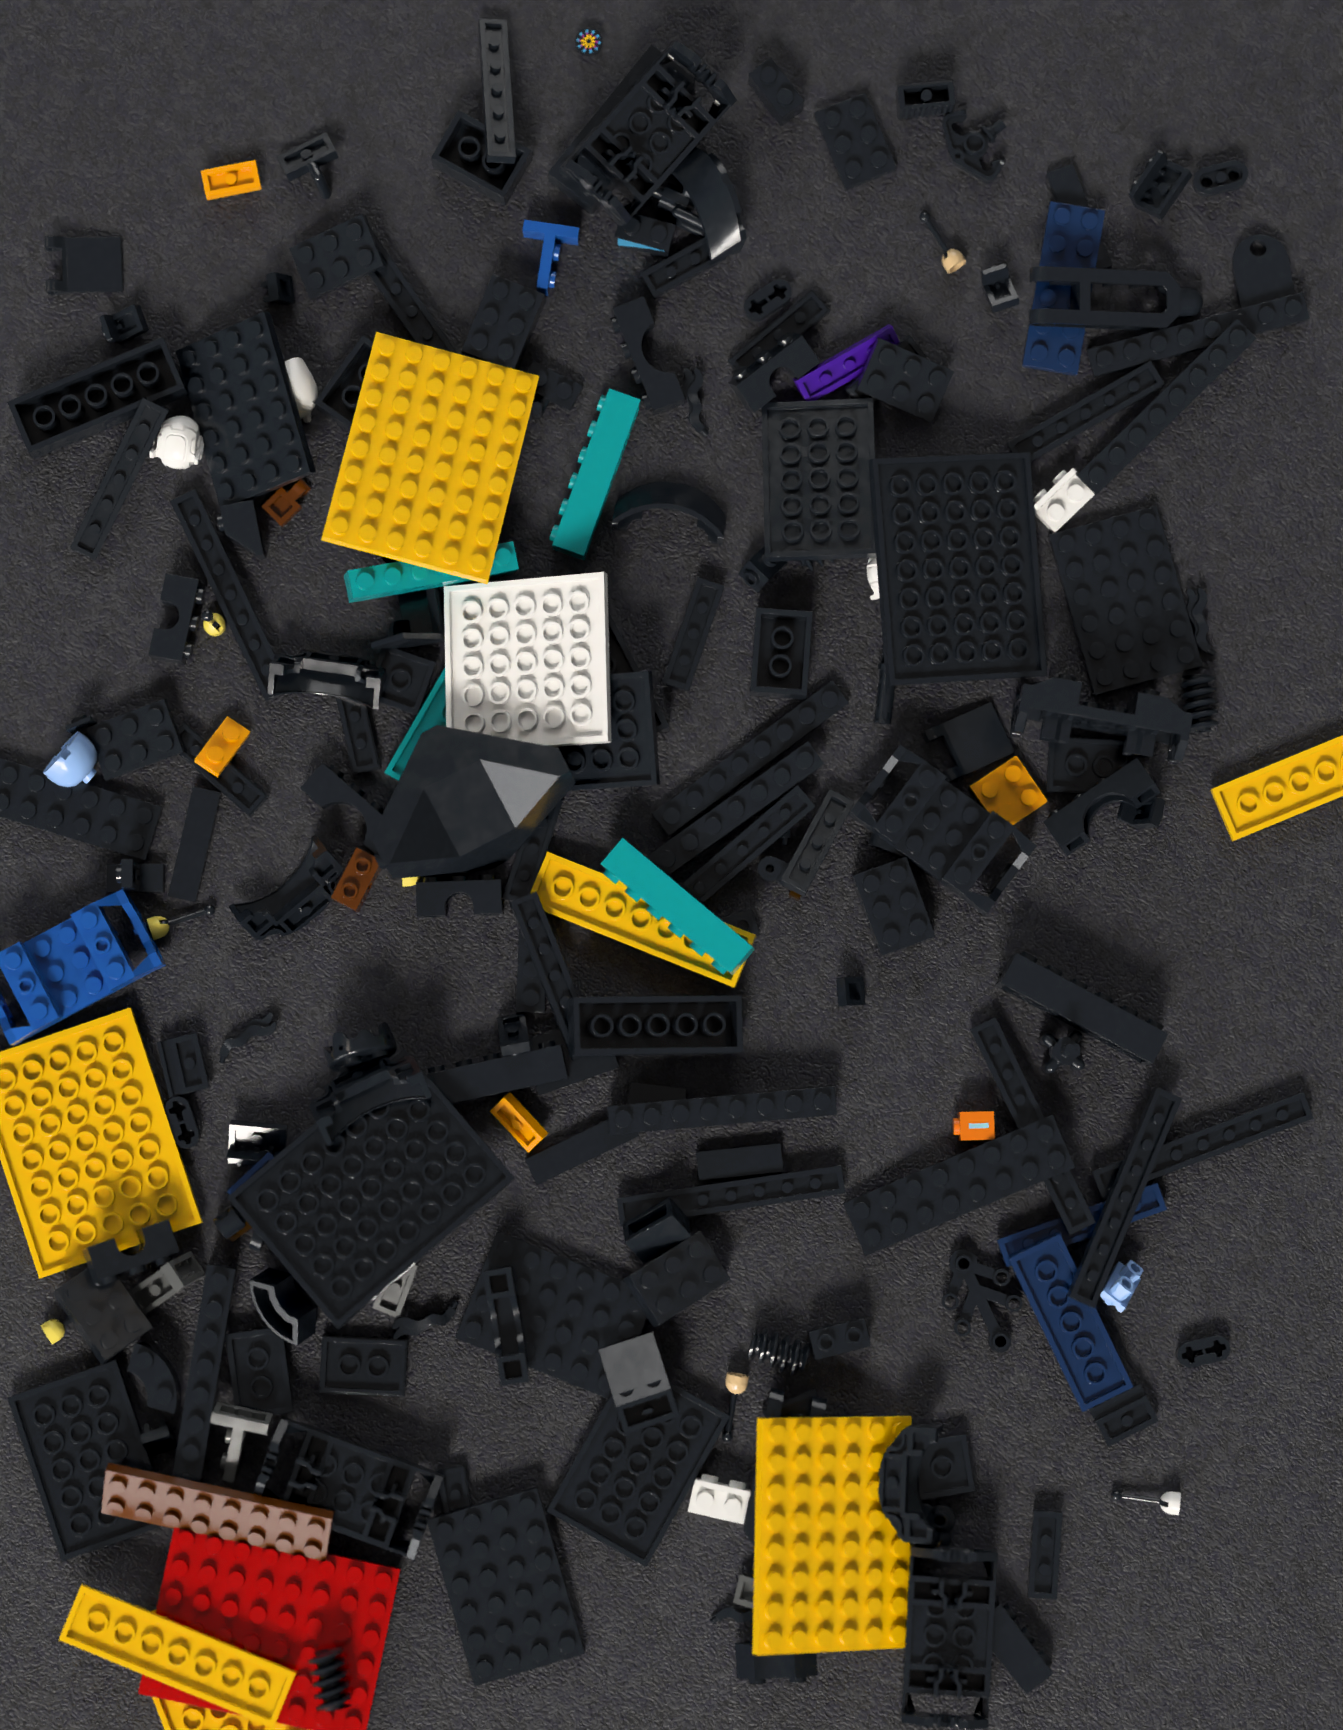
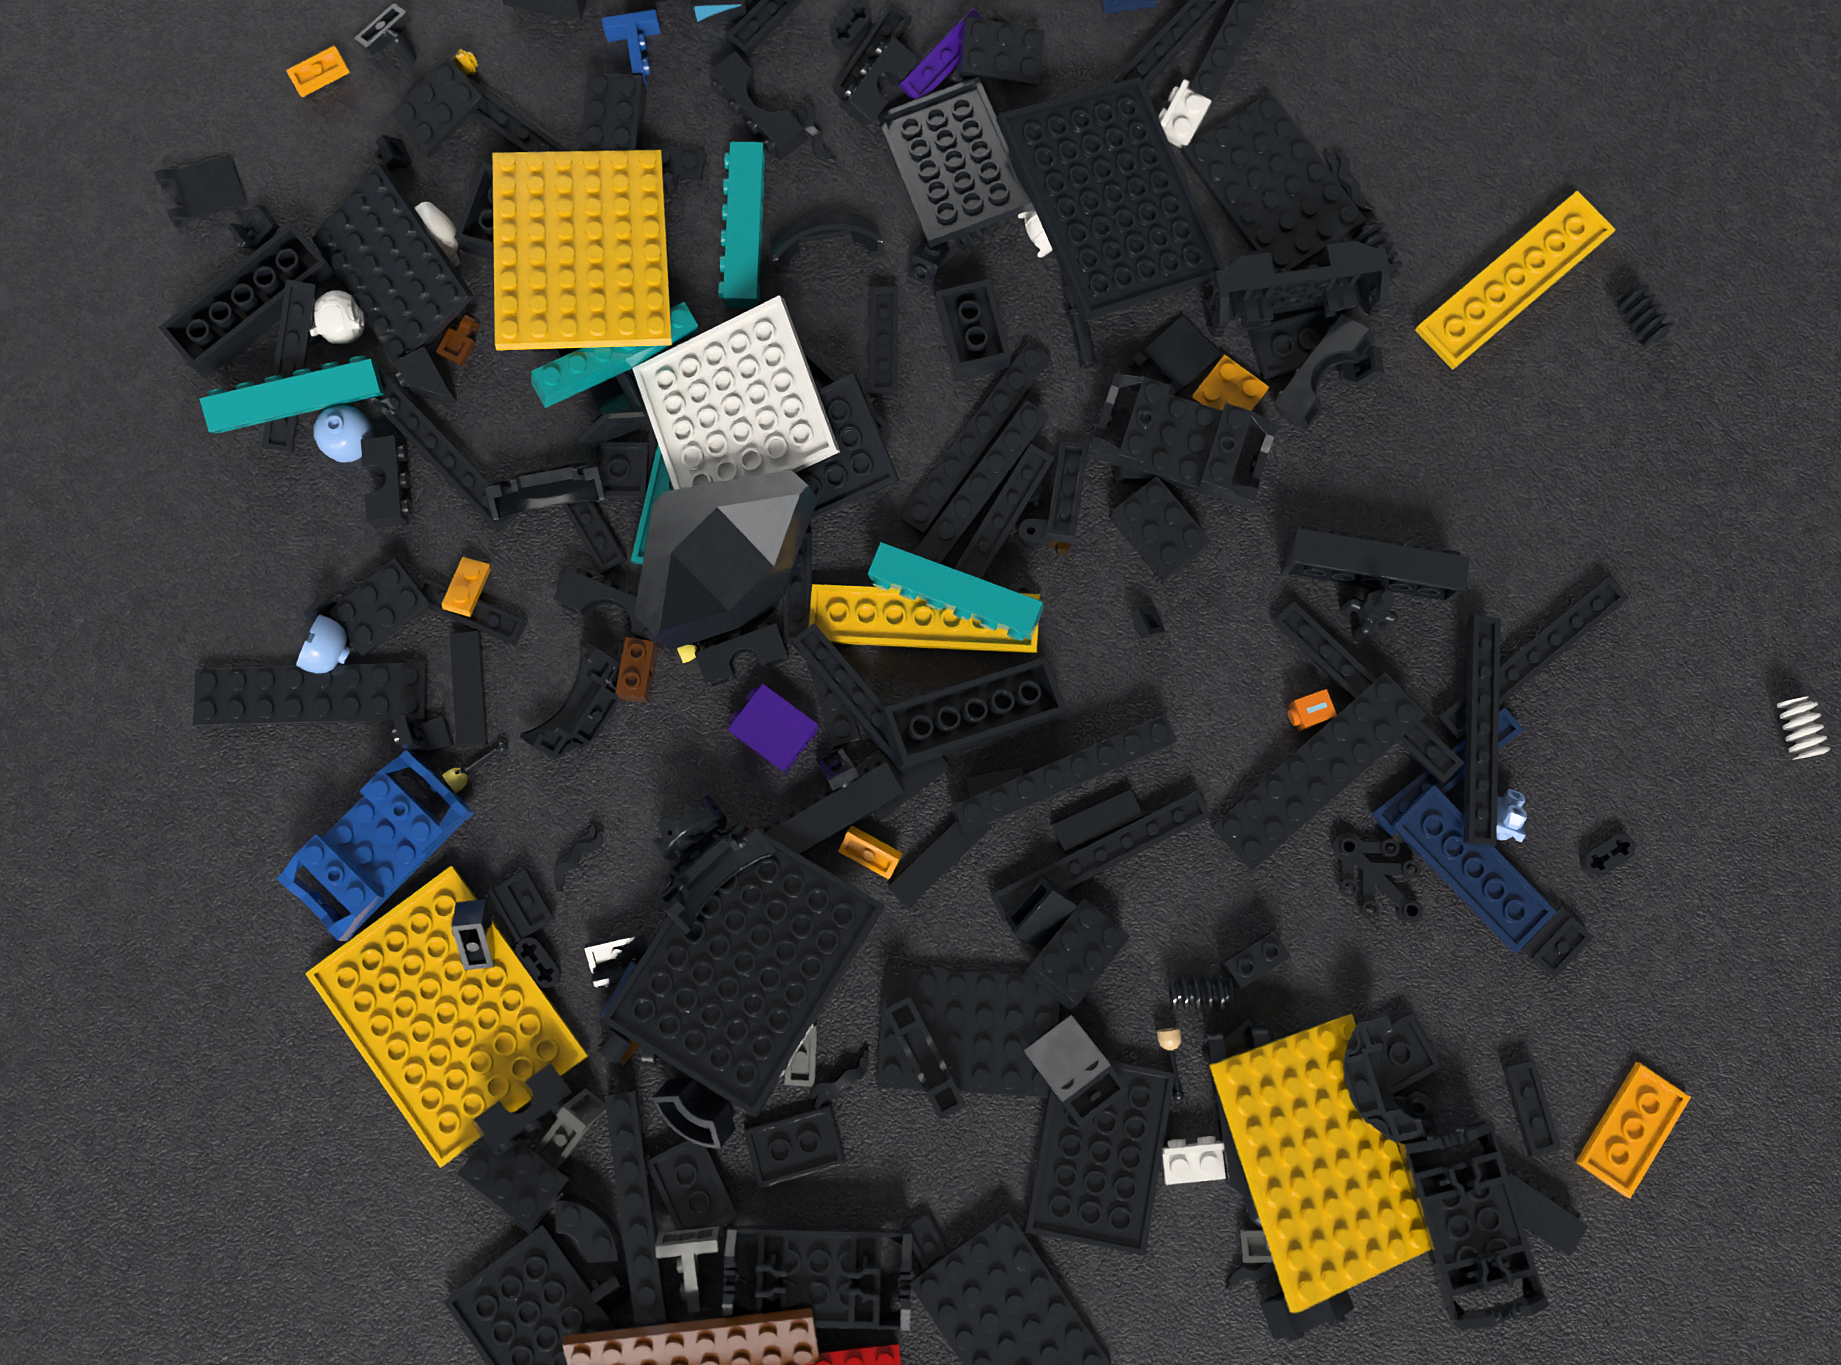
camera: 15 degrees left, 5 degrees down
(55, 1329) = (471, 1214): light yellow hinge -> none
(115, 511) = (292, 395): none -> teal brick
(133, 1079) = (473, 934): none -> black slope
(149, 556) = (340, 432): none -> light blue cylinder
(212, 621) = (421, 473): light yellow hinge -> none
(377, 217) = (466, 62): none -> yellow plate
(466, 976) = (772, 728): none -> dark purple brick
(1131, 1605) = (1633, 1129): none -> light orange tile
(1168, 1502) = (1632, 1013): hinge -> none

